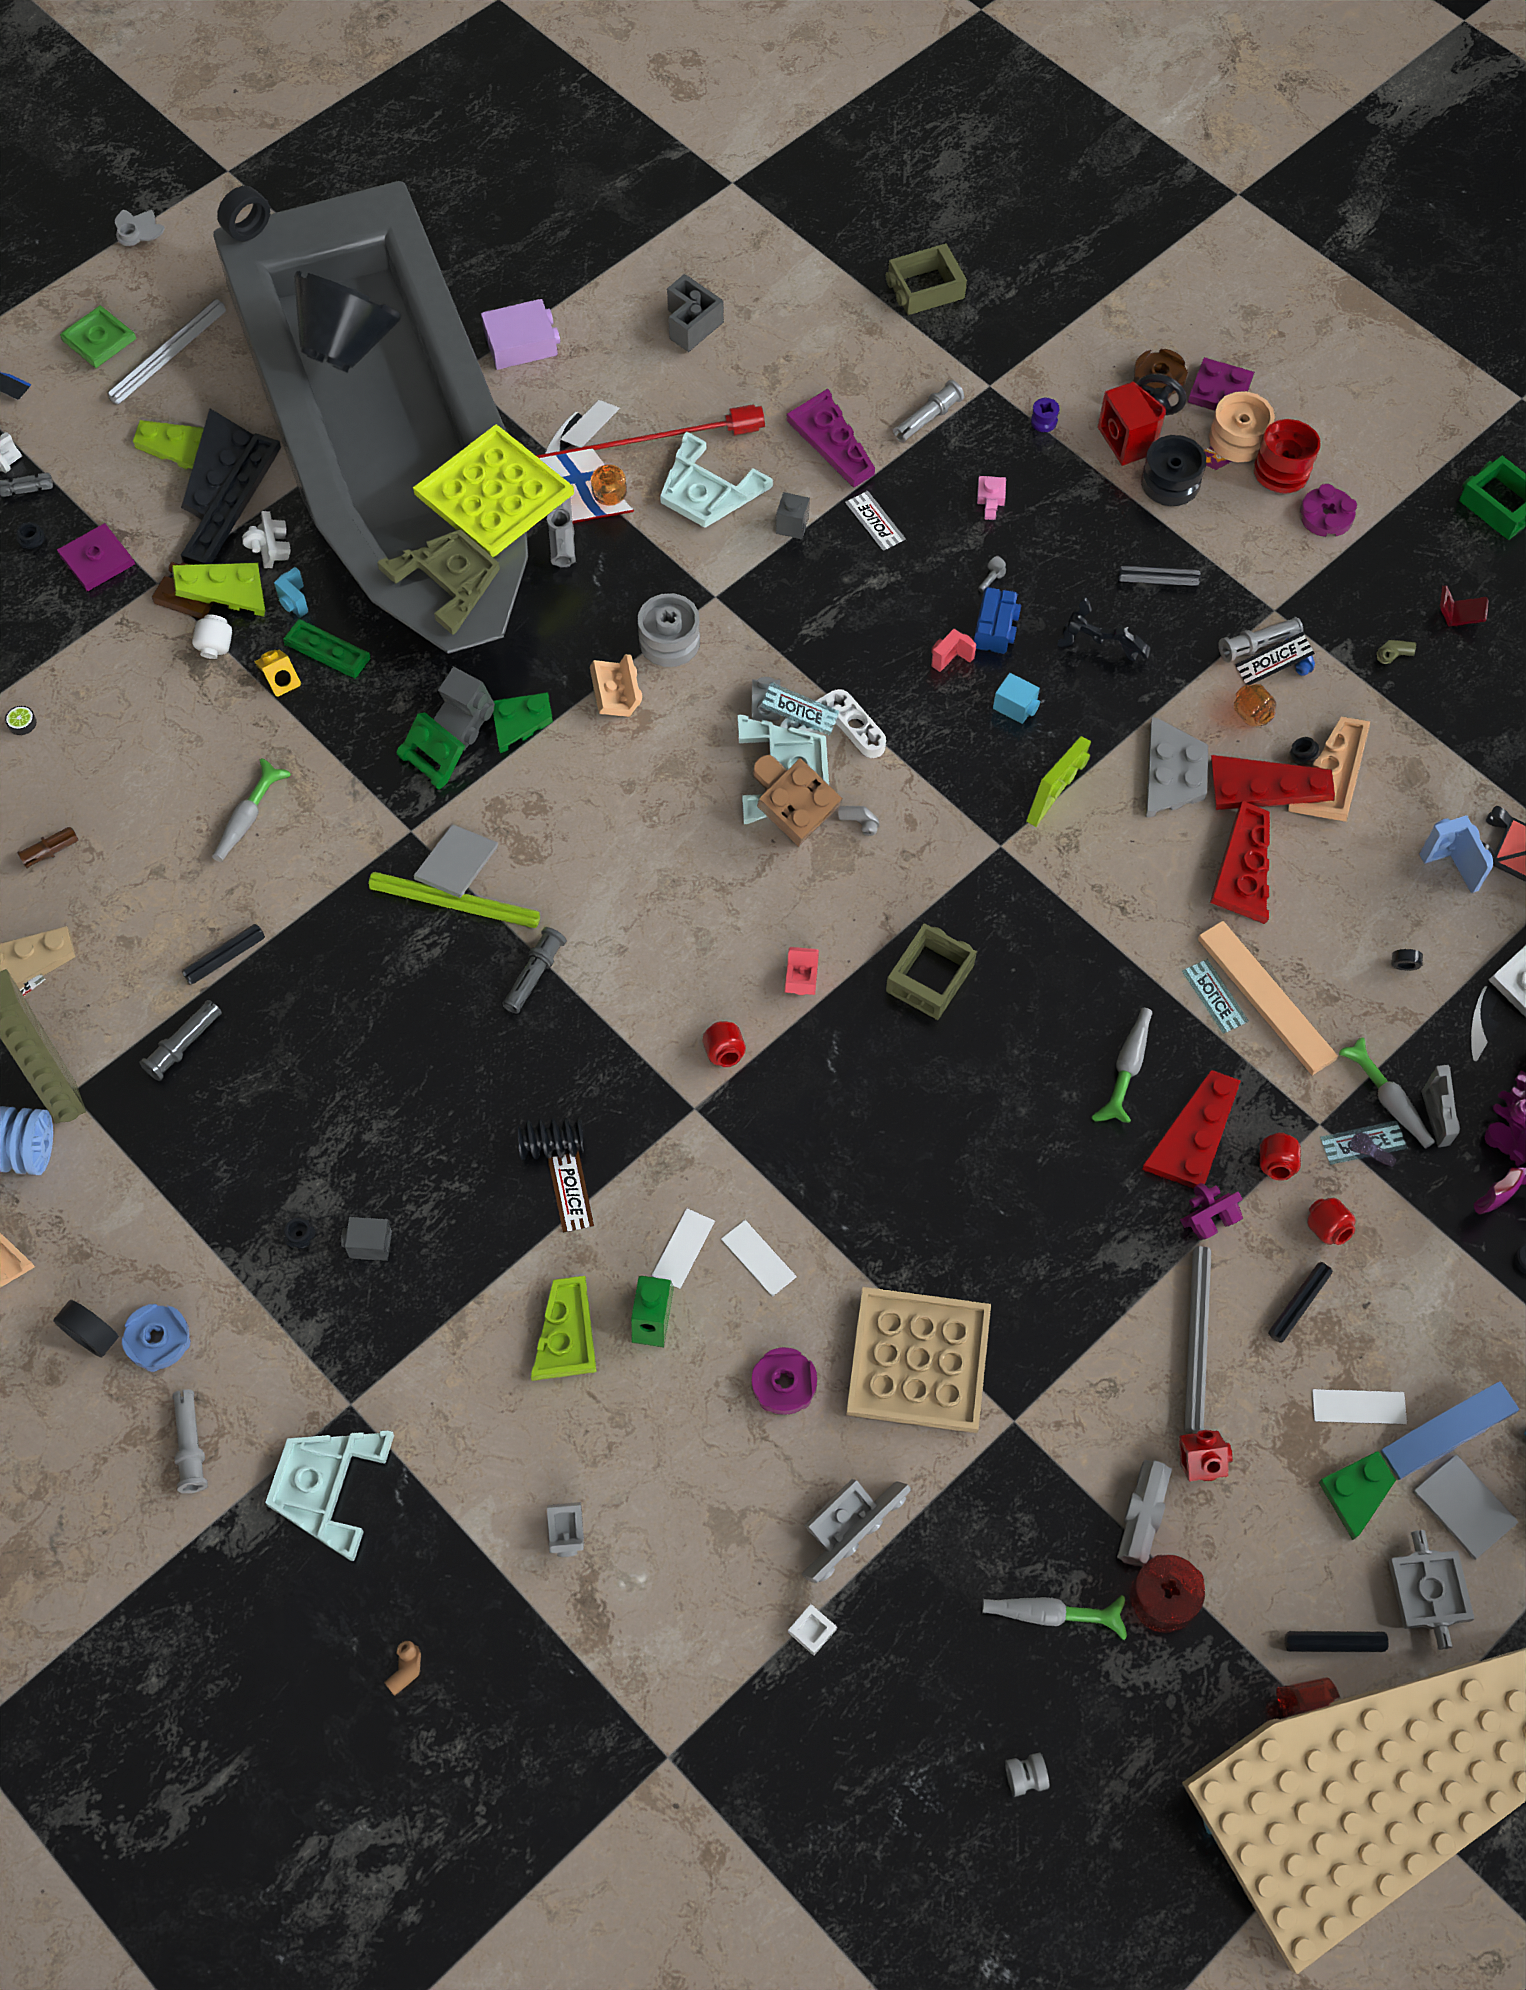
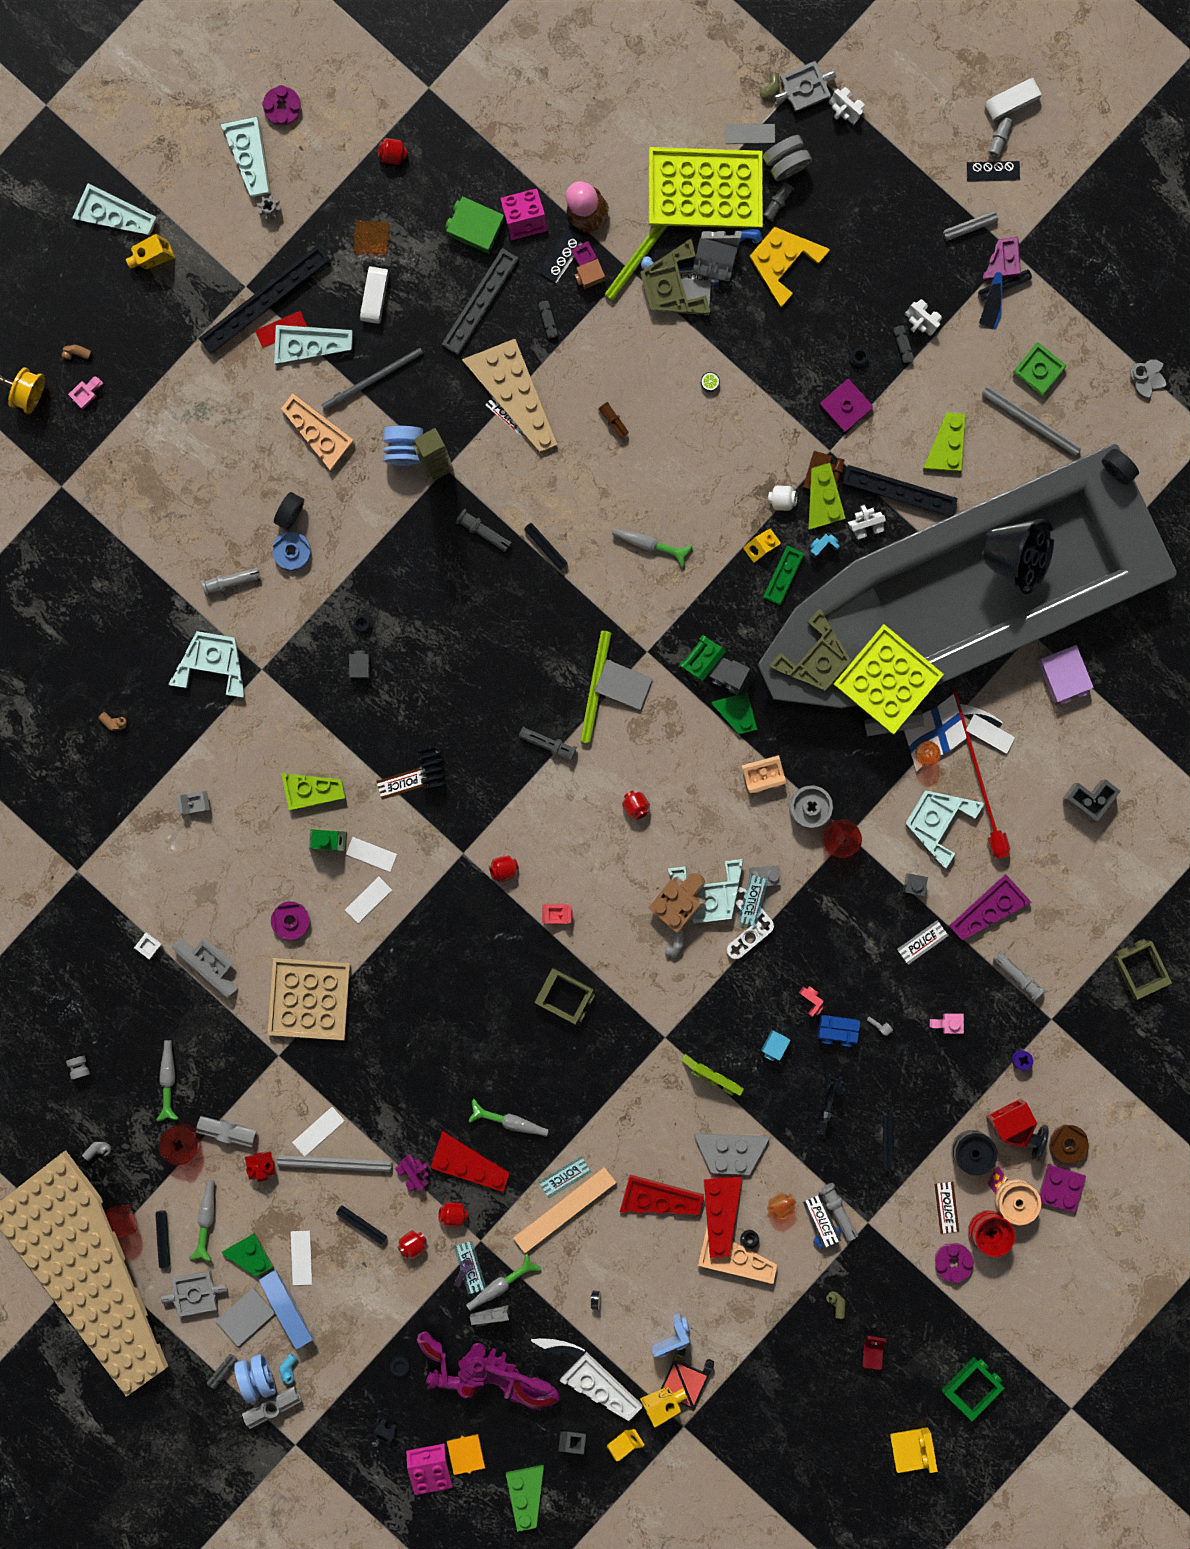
camera: 85 degrees right, 25 degrees up
(216, 457) = (930, 474): black wing -> none
(642, 853) = (636, 805): none -> red head
(719, 595) = (837, 828): none -> clear red brick
(1144, 1364) = (318, 1131): none -> white sticker
(1175, 1748) = (97, 1148): none -> light grey arm
(1250, 517) = (946, 1207): none -> sticker
(1301, 1562) = (205, 1220): none -> light grey piece

